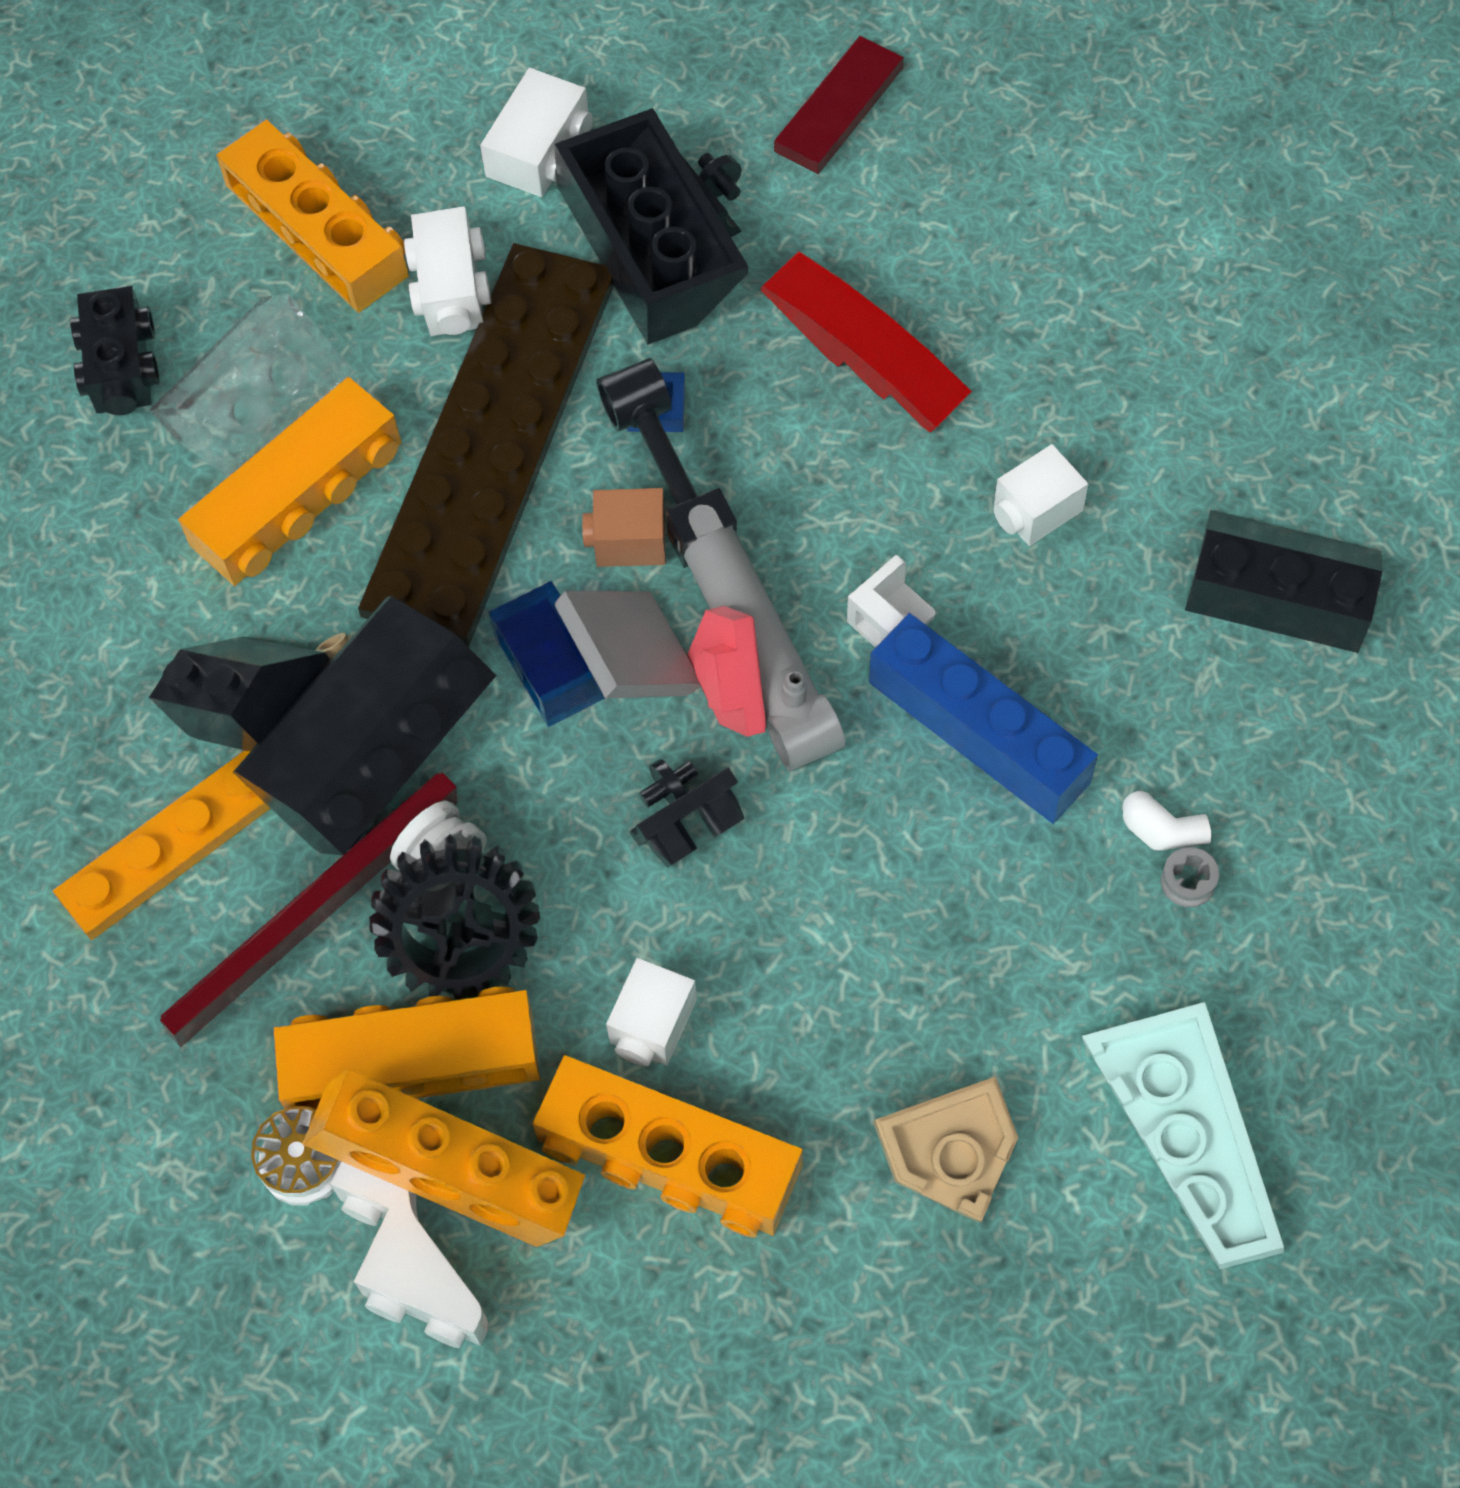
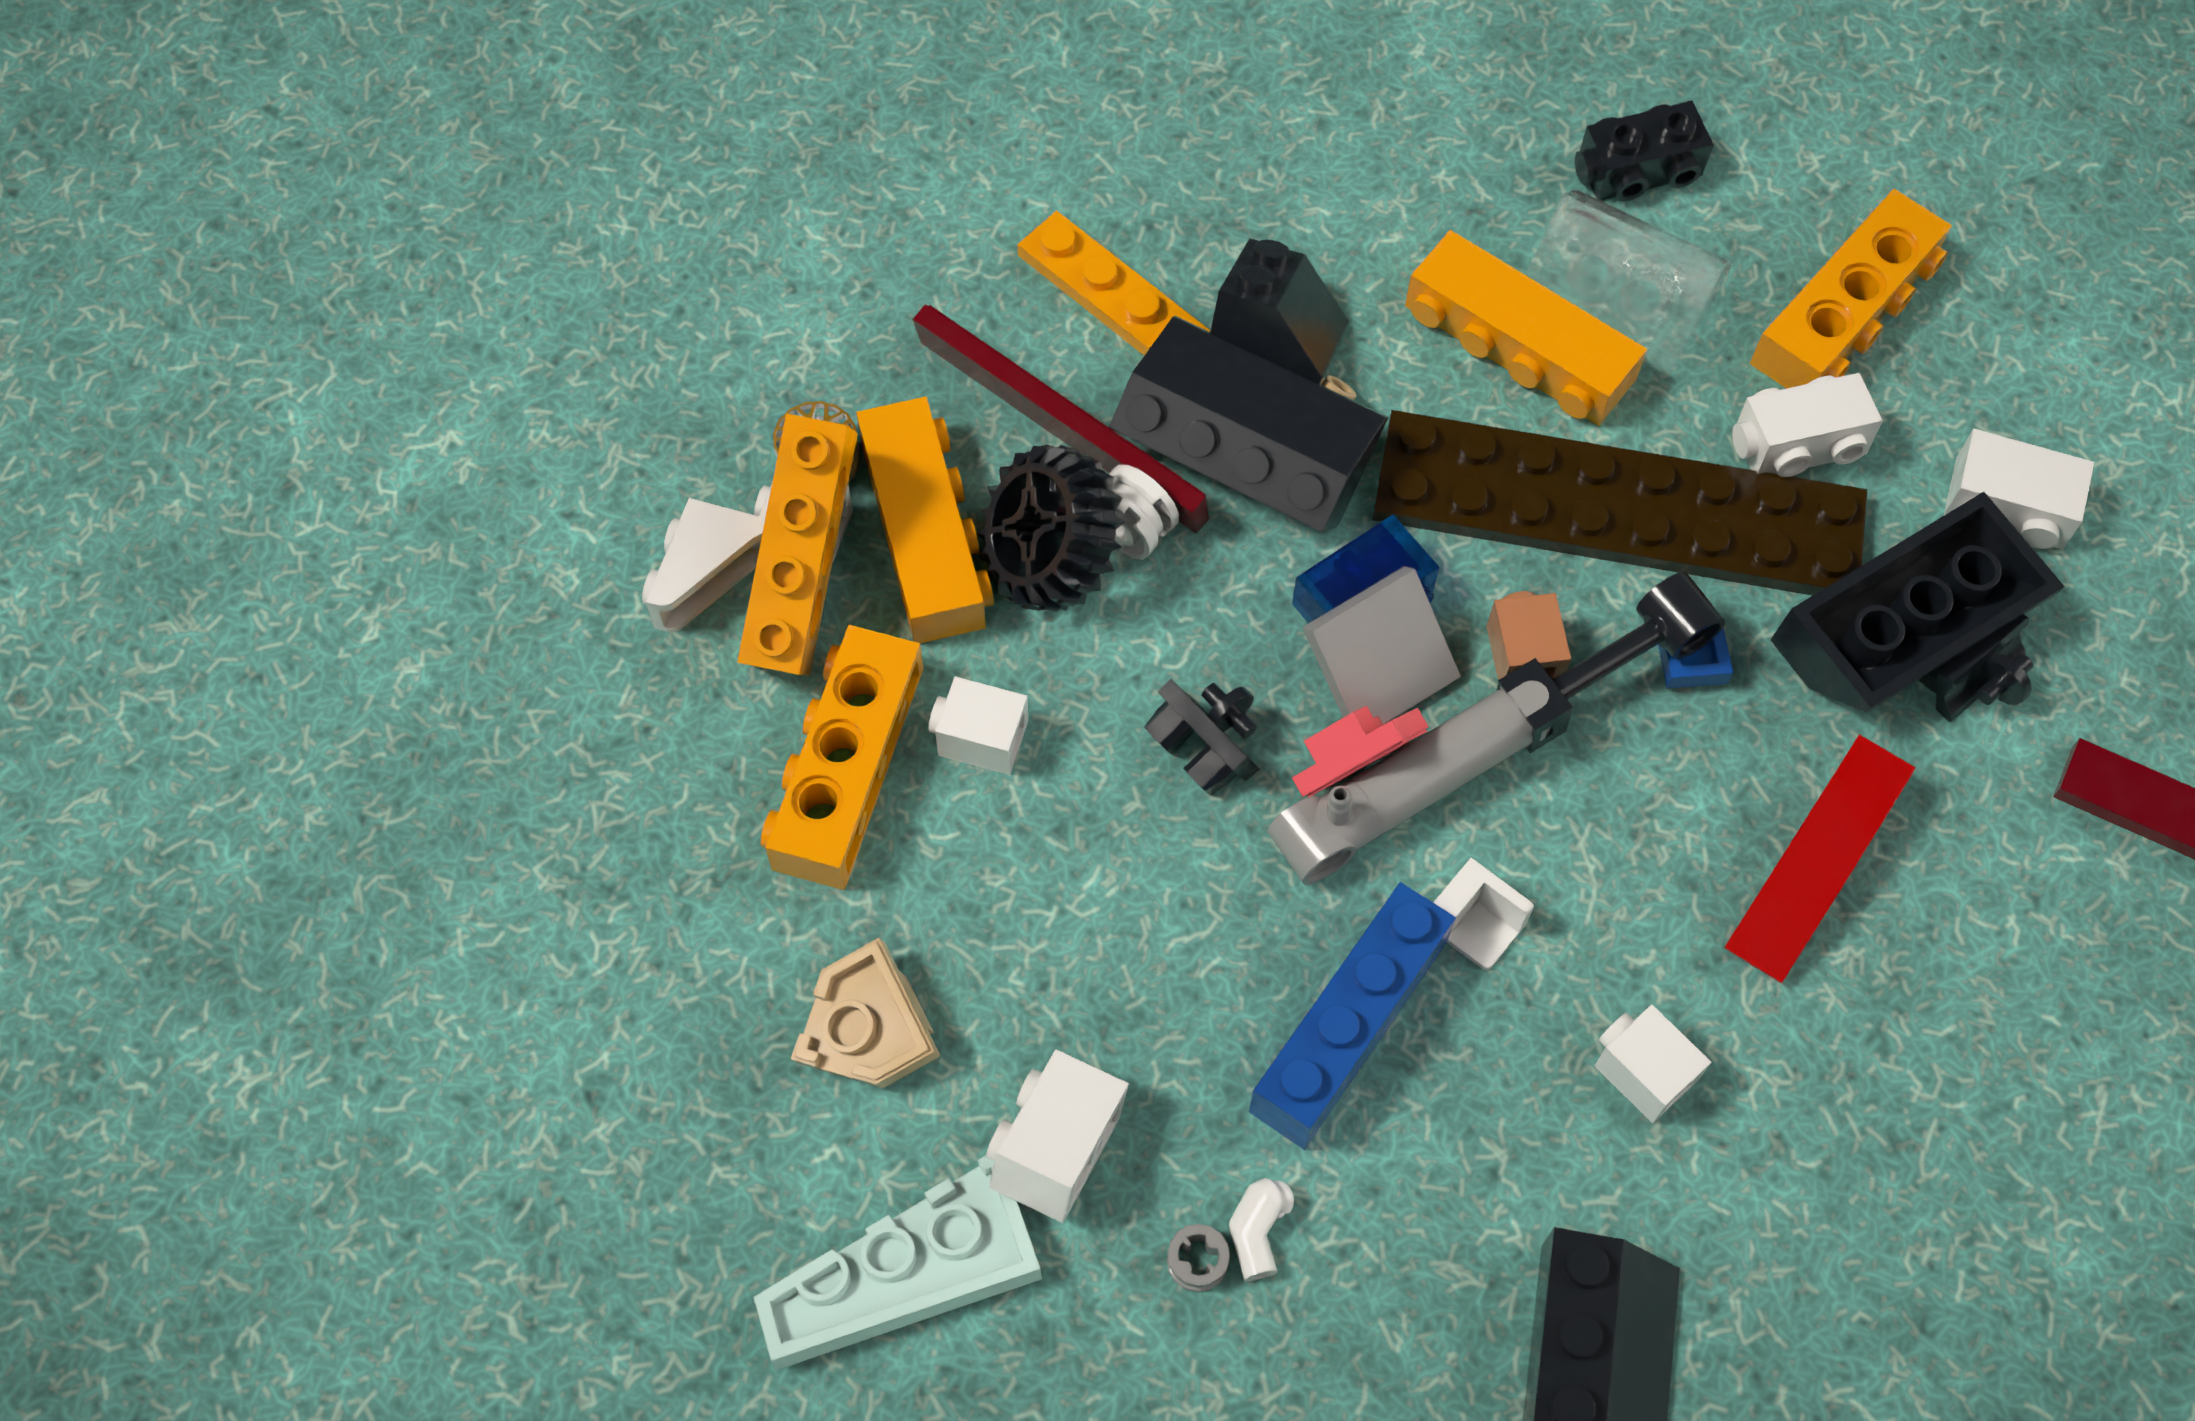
camera: 80 degrees right, 0 degrees up
(1082, 974) = (1056, 1135): none -> white brick

